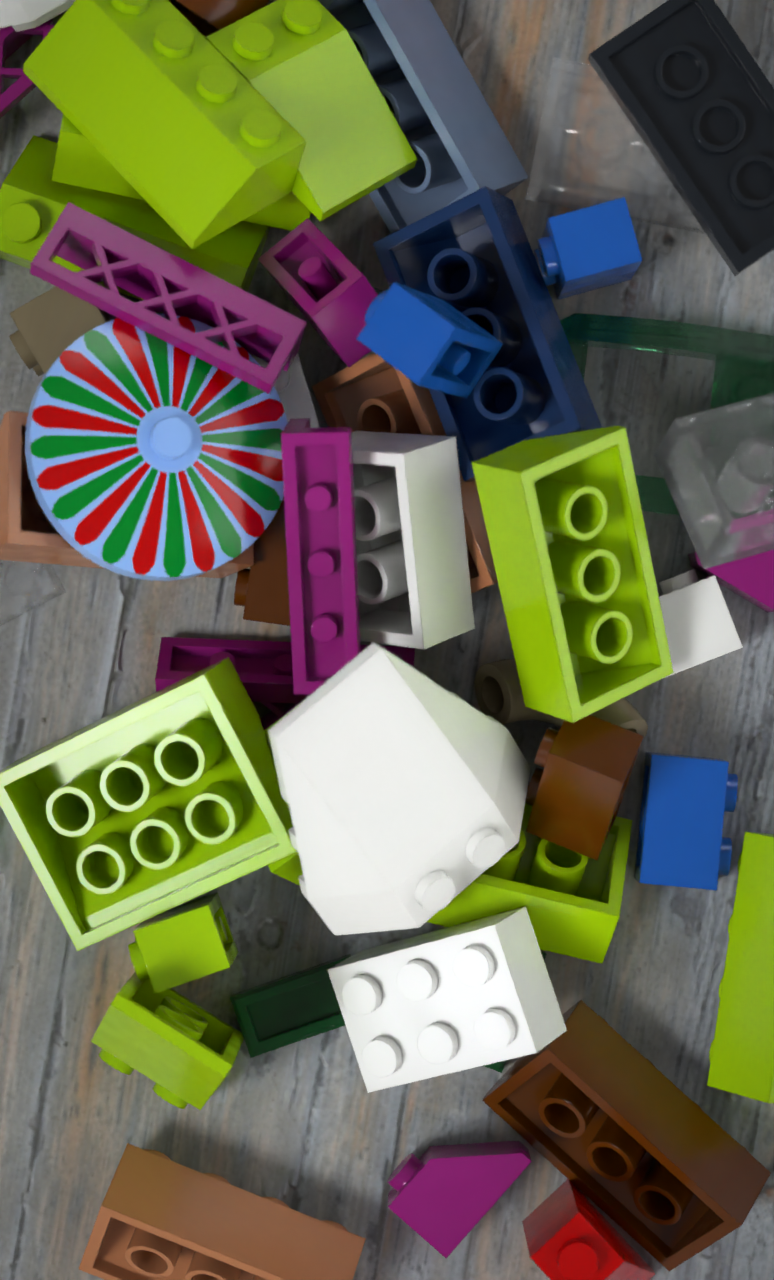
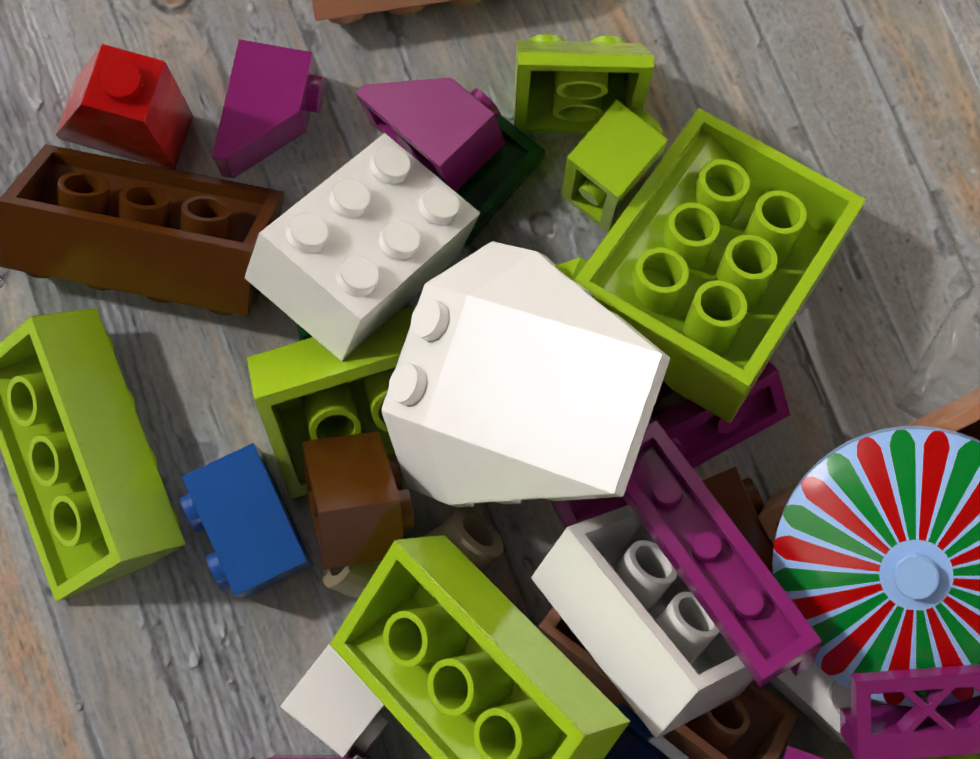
camera: 145 degrees right, 10 degrees down
(315, 1074) = (437, 124): none -> magenta slope

